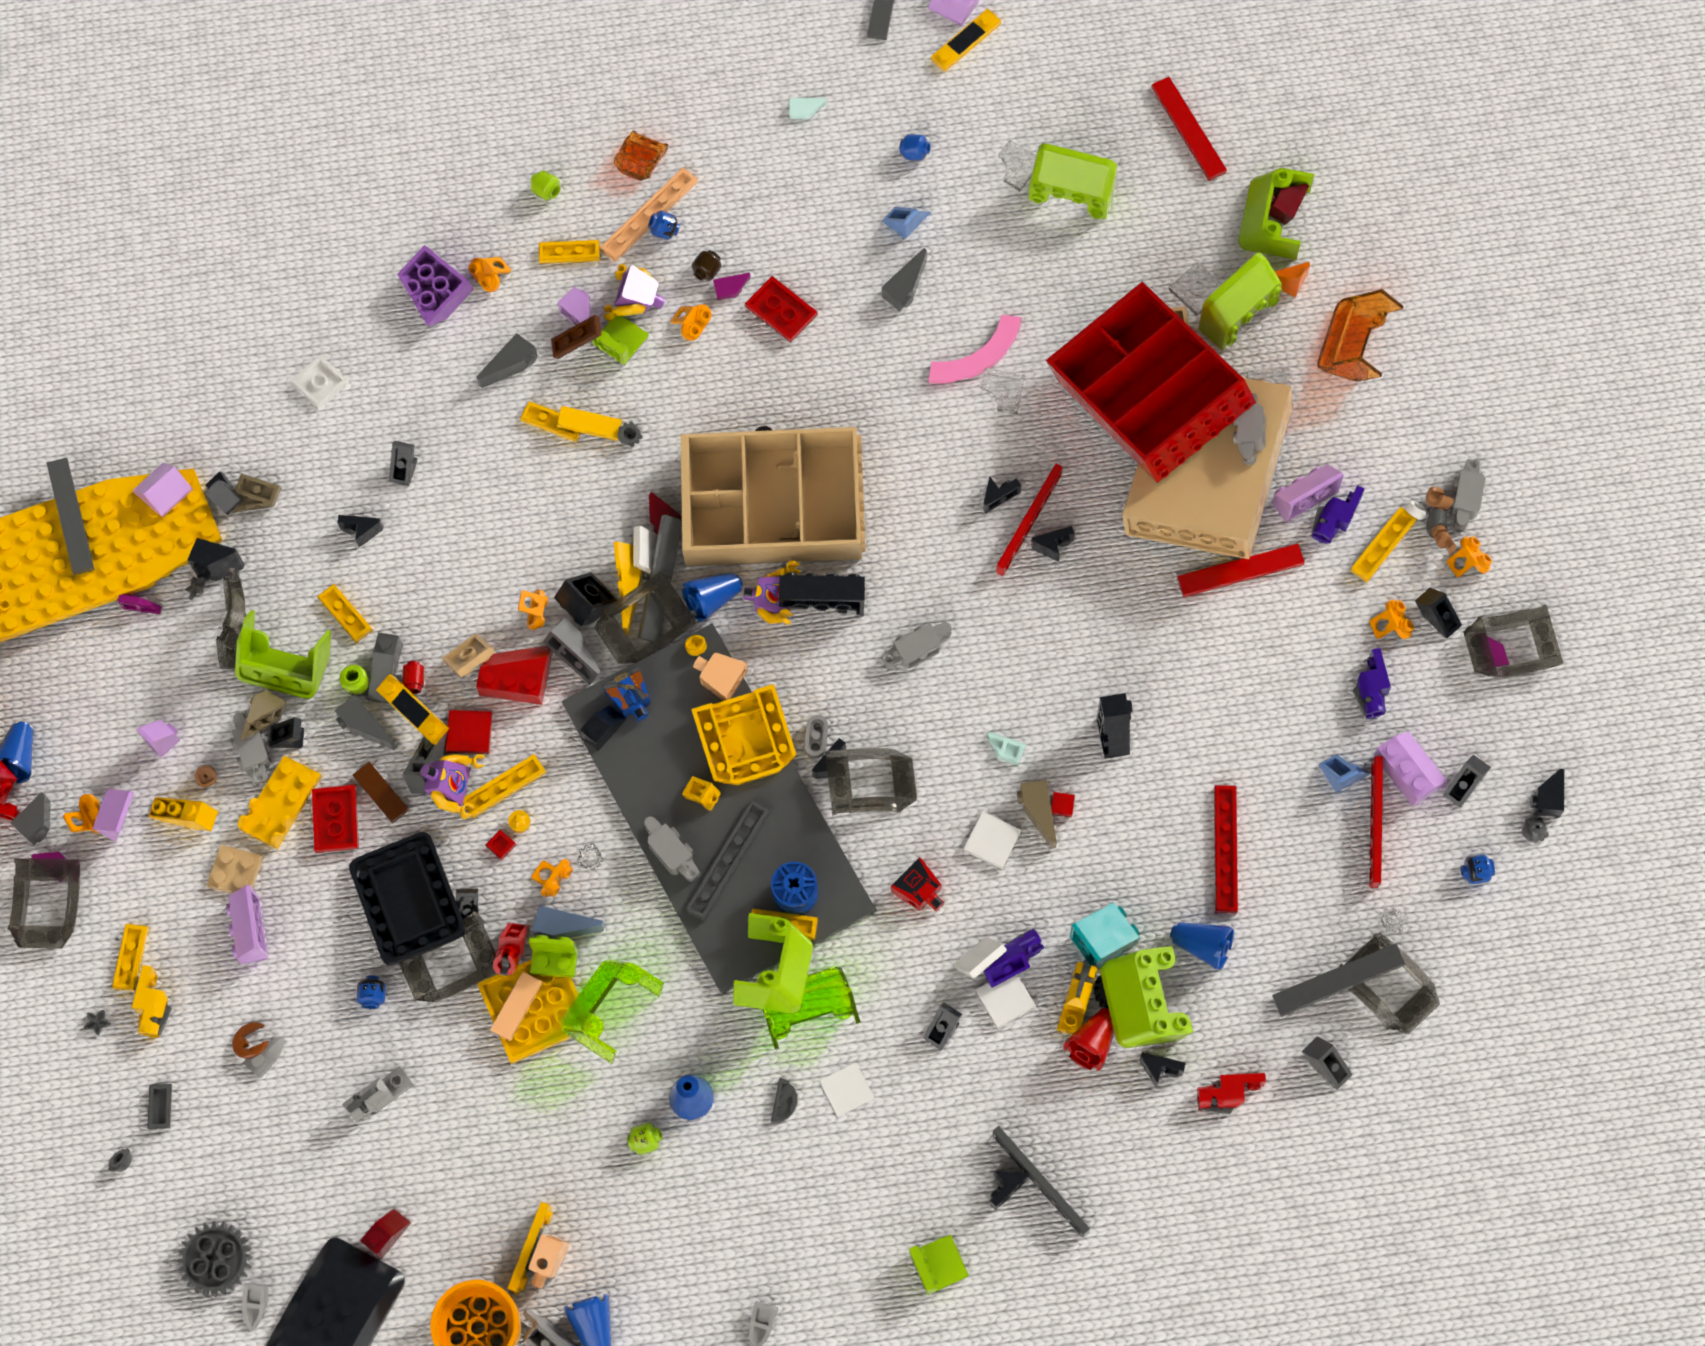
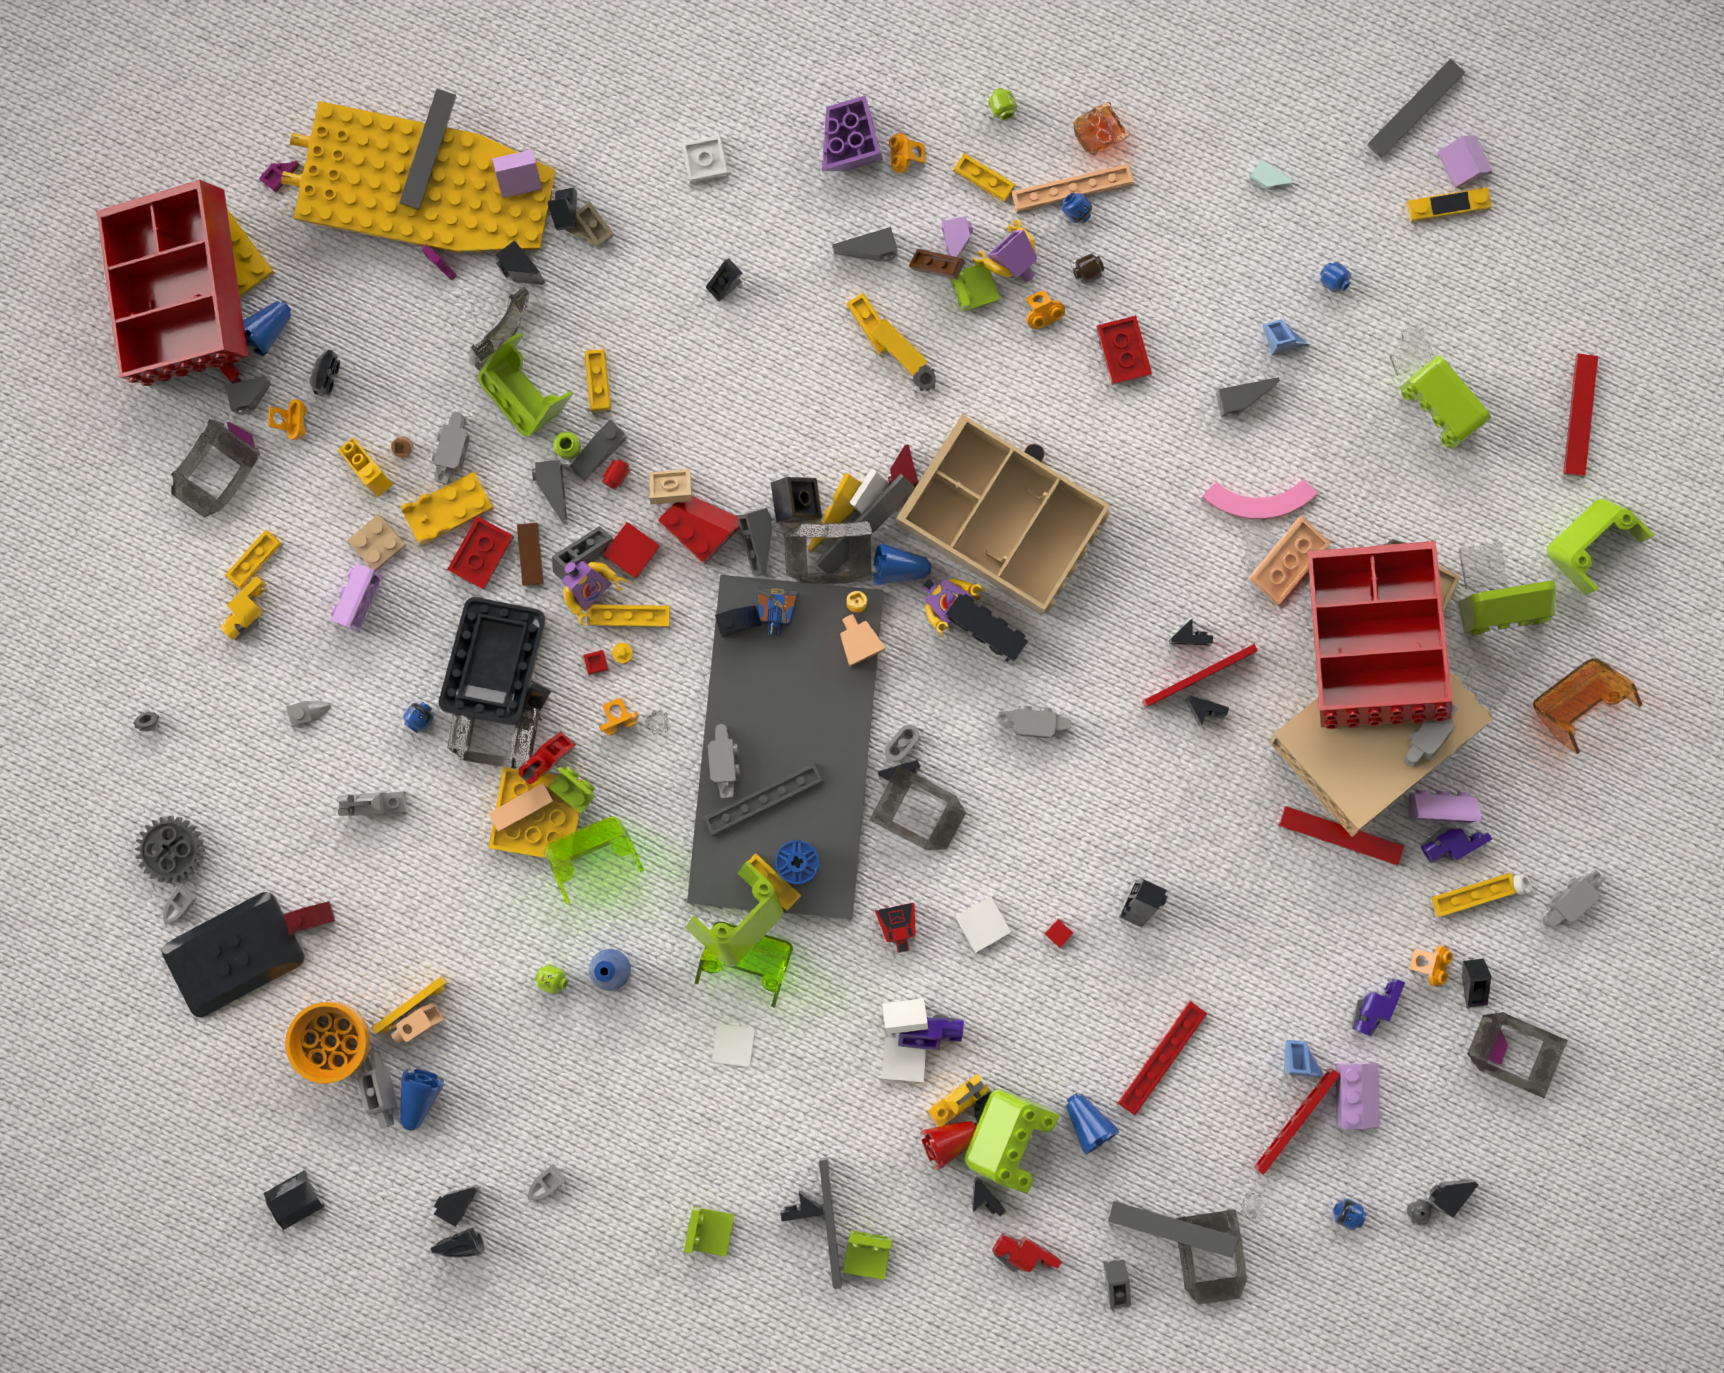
camera: 30 degrees right, 15 degrees up
(92, 759) = (324, 367): none -> black slope
(97, 1021) = (196, 595): dark grey plant -> none
(112, 813) = (308, 432): lavender slope -> none
(159, 736) = (384, 390): lavender slope -> none
(159, 1106) = (202, 698): dark grey tile -> none
(196, 587) = (493, 277): dark grey plant -> none
(239, 1043) = (293, 690): dark orange head -> none
(264, 711) = (478, 425): dark tan slope -> none
(287, 734) = (486, 455): black slope -> none
(365, 527) = (659, 316): black slope -> none
(412, 709) = (596, 503): yellow plate -> none
(536, 609) = (756, 477): light orange bracket -> none
(559, 923) = (596, 760): sand blue slope -> none
(701, 792) = (778, 730): yellow bracket -> none
(730, 286) = (1096, 300): magenta tile -> none
(745, 736) = (843, 707): yellow wedge -> none
(785, 1101) = (679, 1022): dark grey tile -> none
(942, 1026) = (838, 1049): black slope -> none
(1006, 748) = (1046, 856): light aqua tile -> none
(1035, 385) = (1288, 561): none -> light nougat tile
(1037, 806) = (1037, 921): dark tan slope -> none
(1092, 1186) = (867, 1254): none -> lime bracket
(1104, 935) = (1016, 1065): slope -> none
(1286, 203) = (1614, 542): dark red slope -> none
(1293, 278) = (1569, 612): orange slope -> none
(1436, 519) = (1533, 903): medium nougat piece -> none
(1466, 780) = (1394, 1137): black slope -> none
(1474, 557) = (1540, 954): light orange bracket -> none

